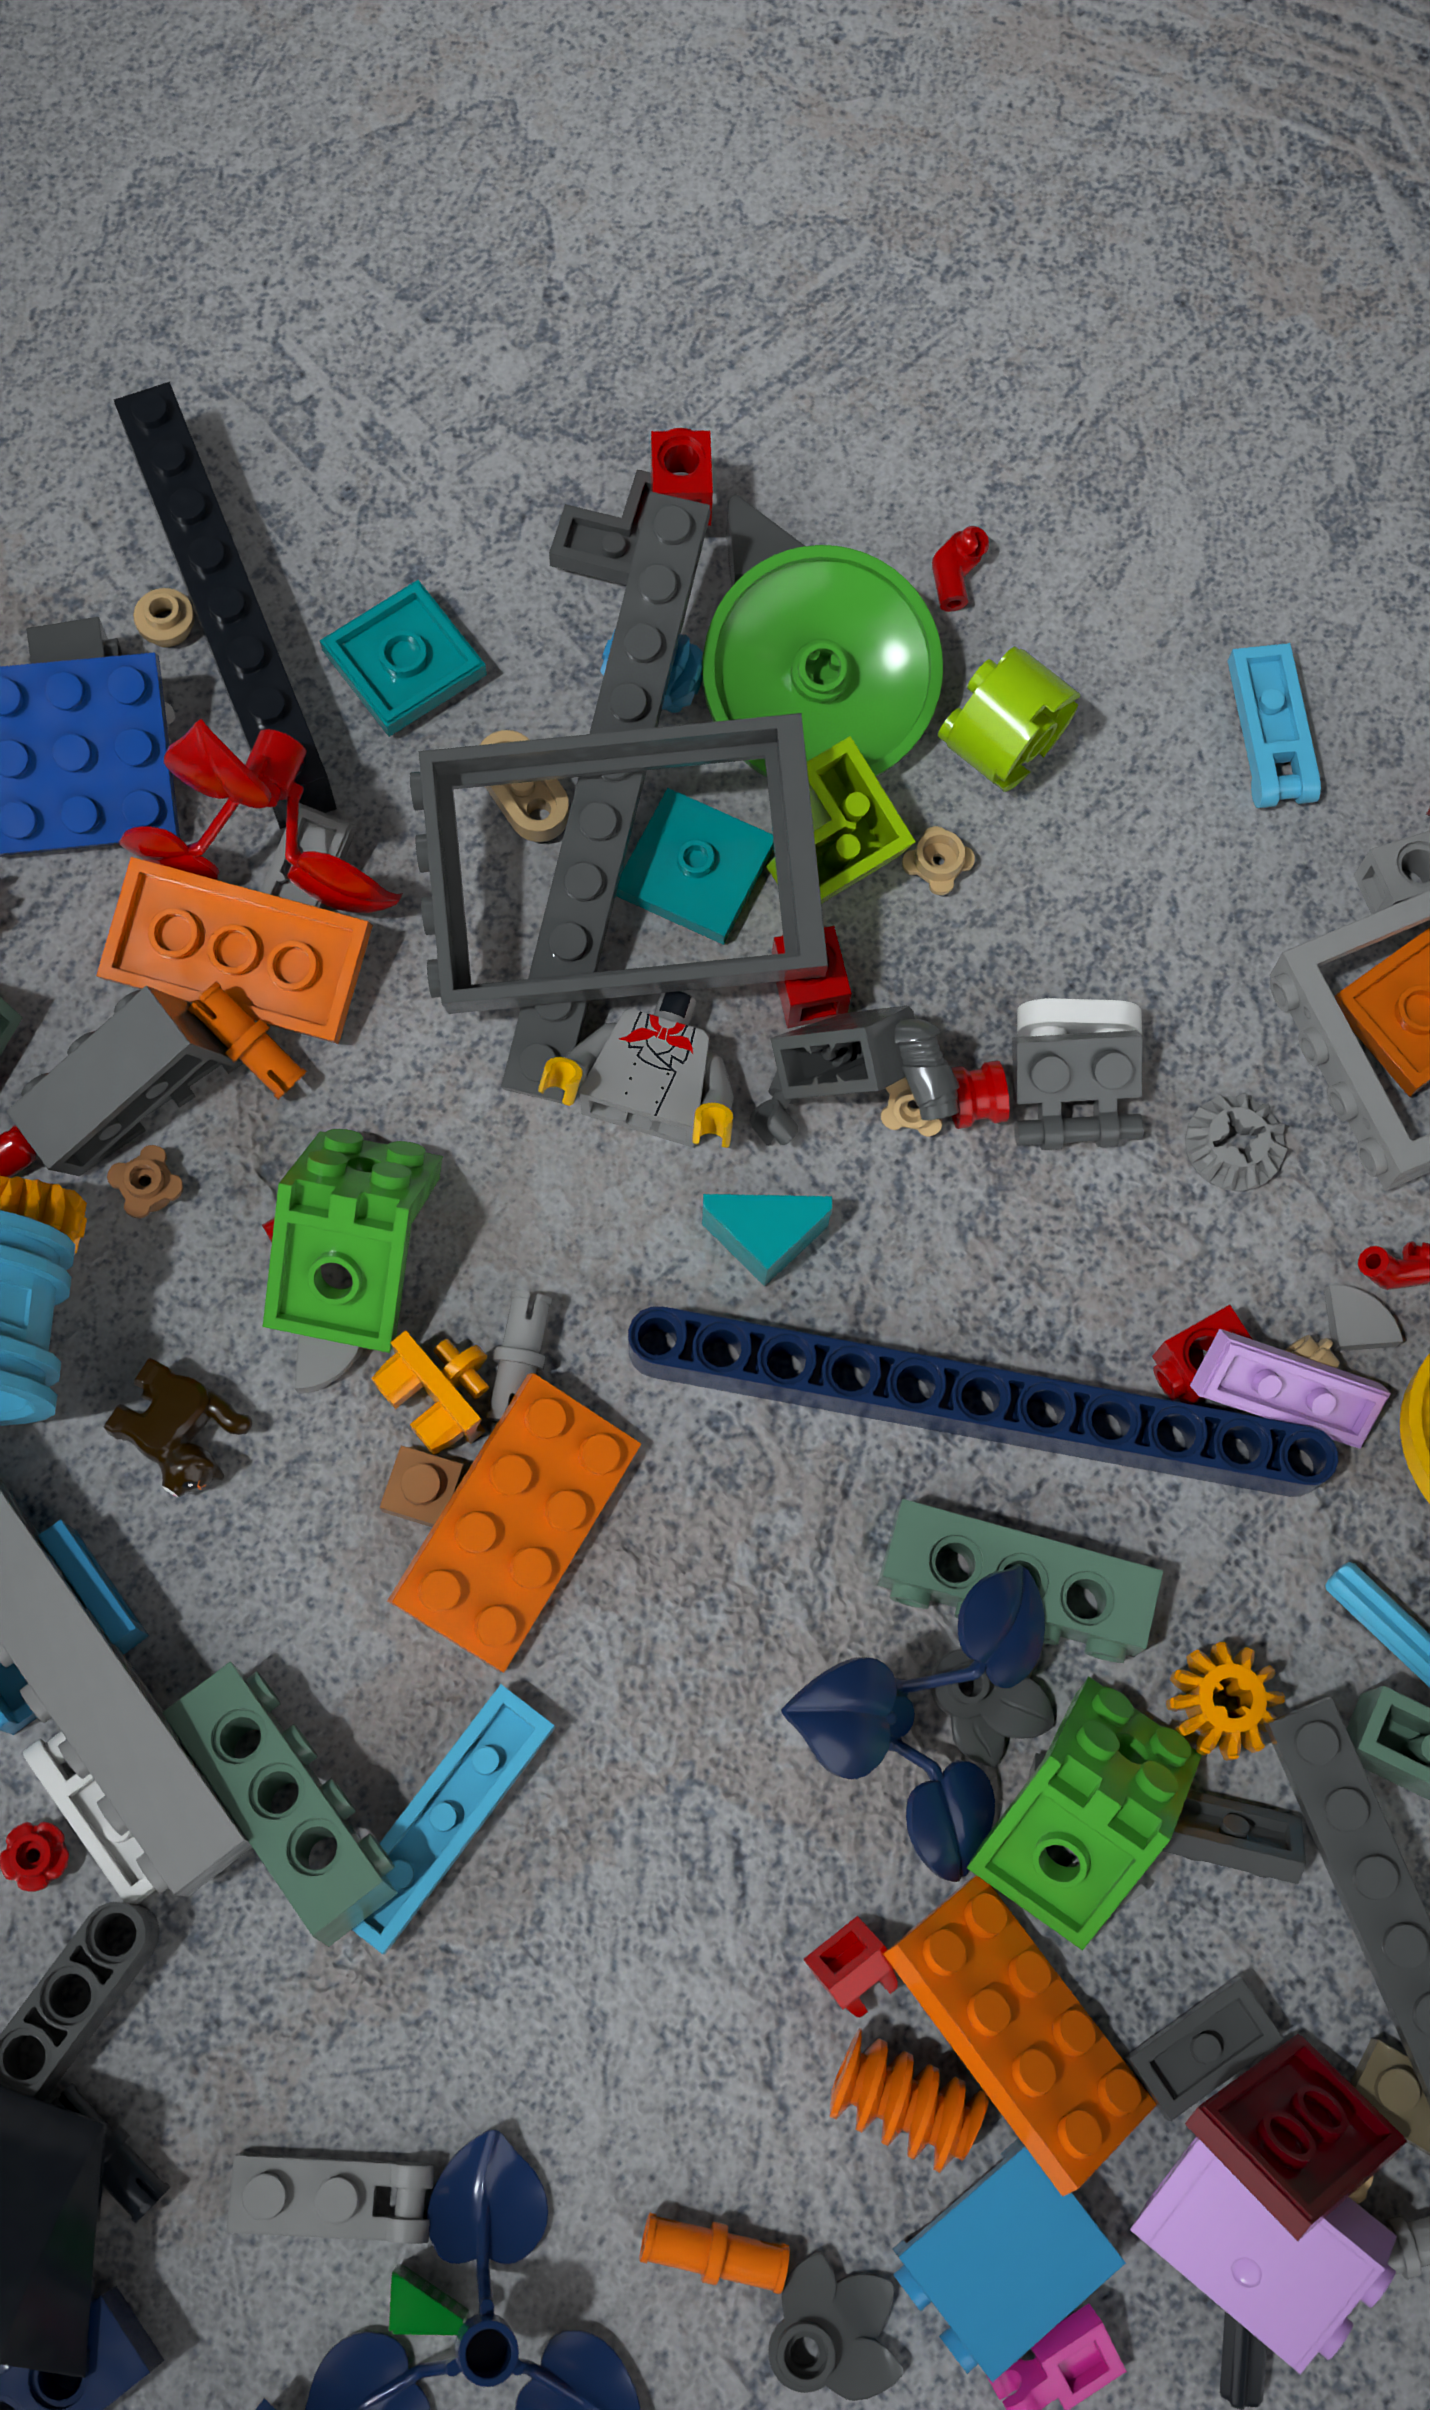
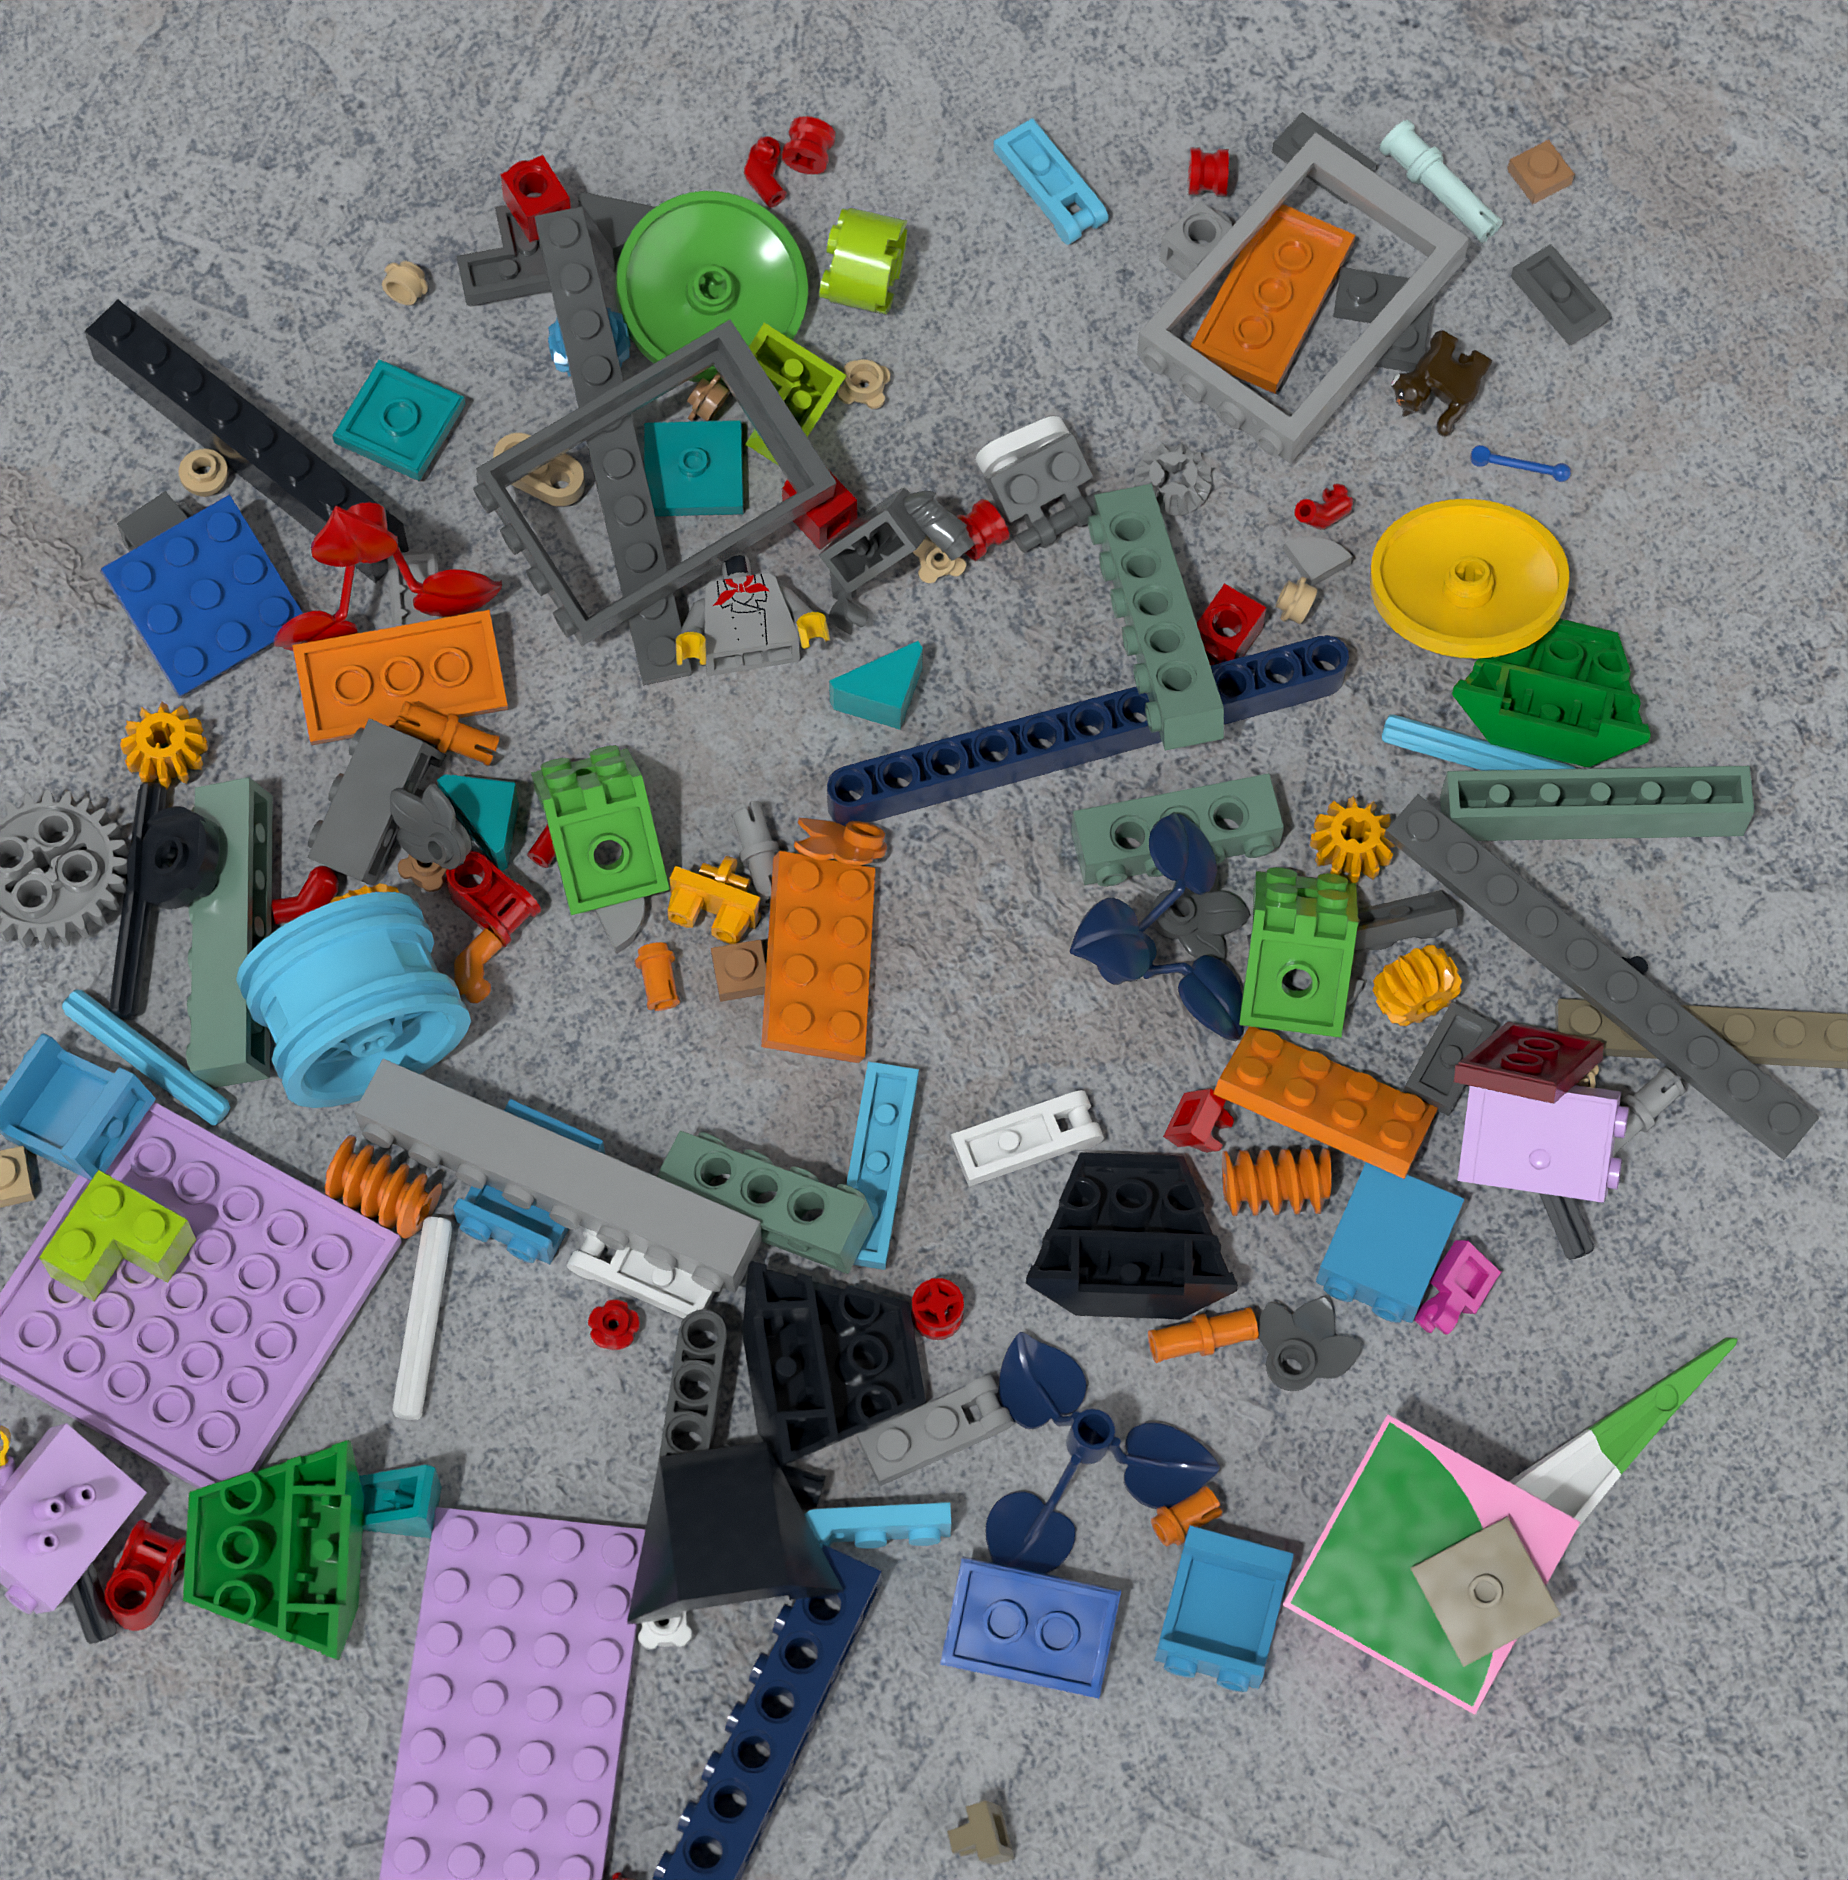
camera: 25 degrees left, 5 degrees down
(122, 1327) = (470, 966): none -> orange arm
(146, 1150) = (429, 827): none -> dark grey plate
(172, 1420) = (544, 1003): dark brown animal -> none
(187, 2292) = (874, 1525): none -> medium azure plate
(188, 1268) = (494, 903): none -> red piece
(240, 1158) = (486, 812): none -> teal slope
(243, 2051) = (825, 1360): none -> black wedge
(323, 1448) = (658, 976): none -> orange pin
(399, 2051) = (937, 1296): none -> red wheel
(421, 2307) = (1033, 1456): green slope -> none
(496, 508) = (404, 282): none -> tan plate
(616, 1395) = (850, 845): none -> orange plate
(635, 1876) = (1025, 1138): none -> white plate
(690, 2083) = (1131, 1241): none -> black wedge
(748, 794) = (707, 398): none -> medium nougat plate
(1020, 559) = (808, 145): none -> red wheel
(1113, 1457) = (1157, 618): none -> sand green brick
(1209, 1937) = (1417, 985): none -> light orange gear
(1289, 1388) = (1291, 618): lavender tile -> none

